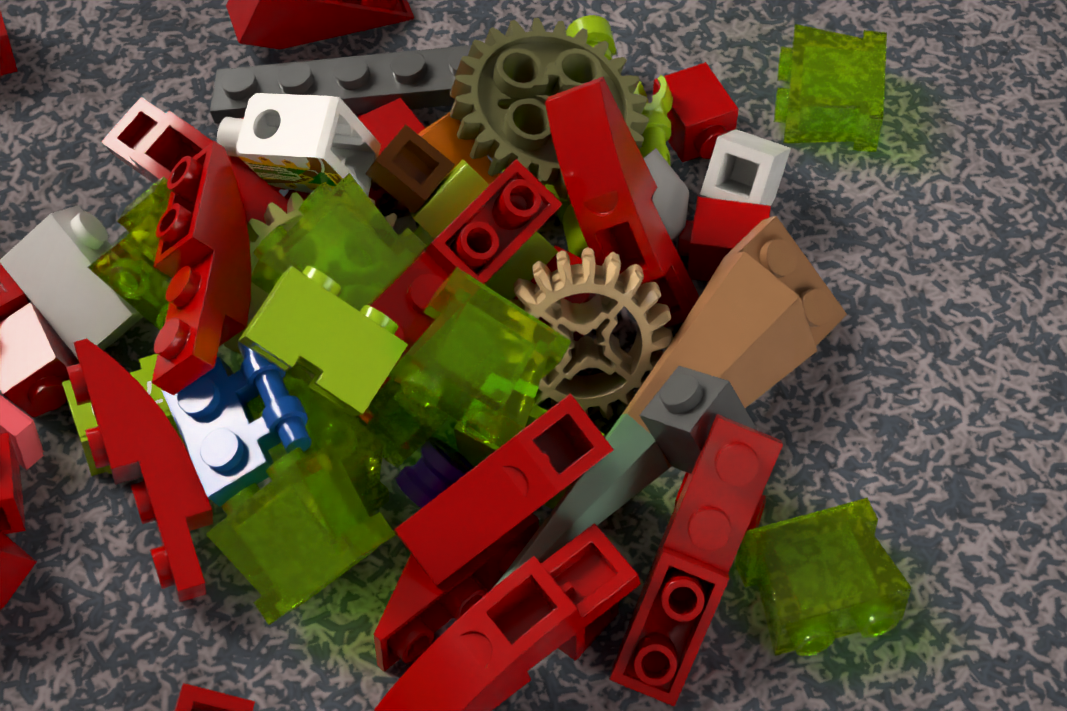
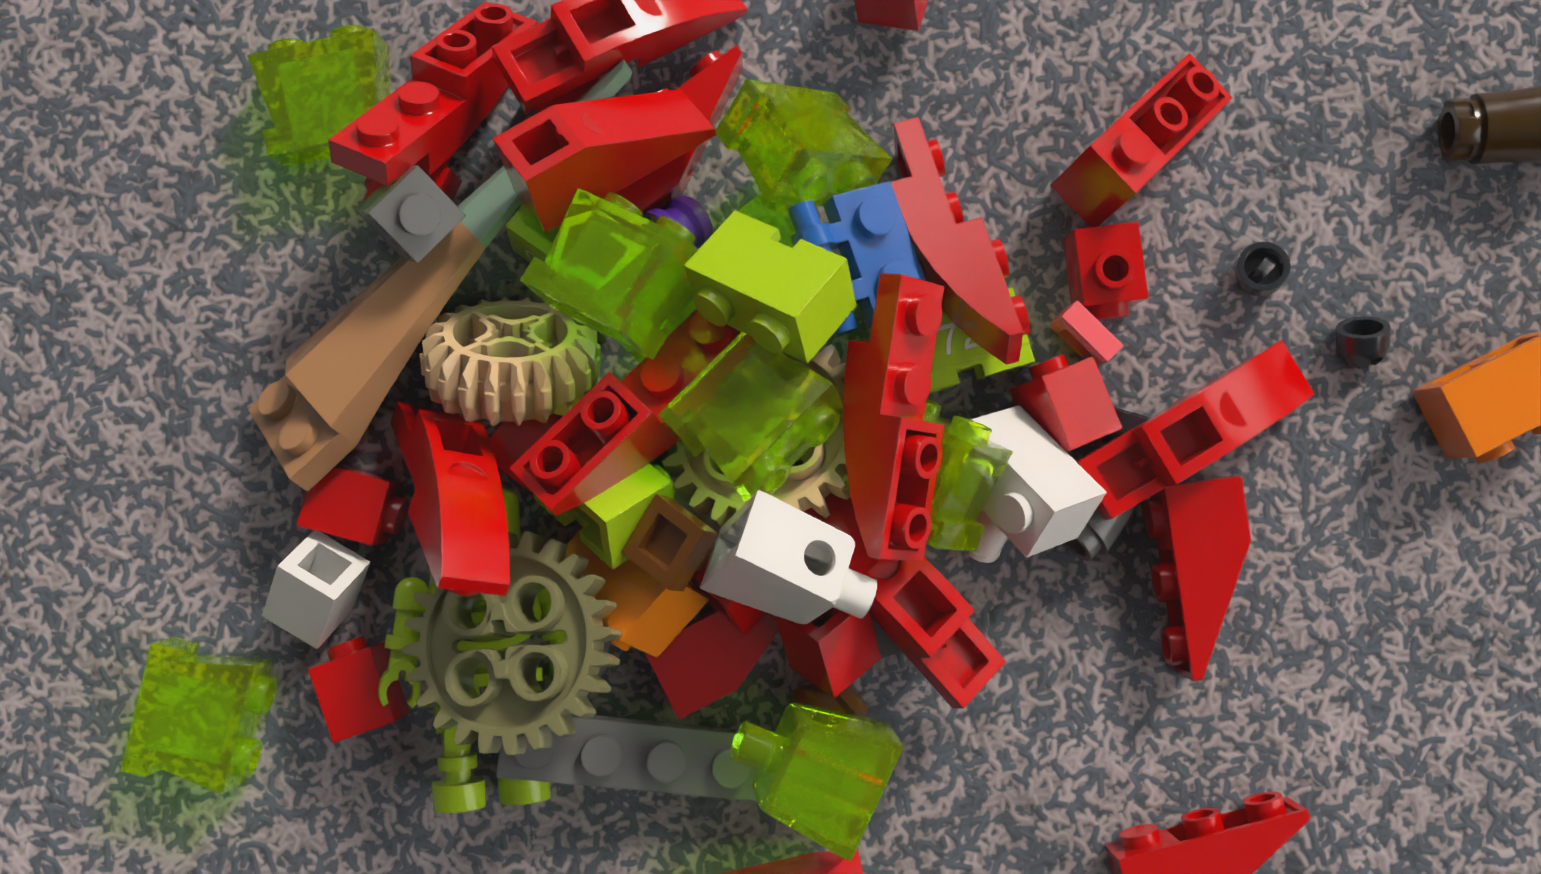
camera: 175 degrees left, 35 degrees up
(268, 53) = (820, 771): none -> clear neon green torso
(671, 195) = (401, 549): light grey arm -> none

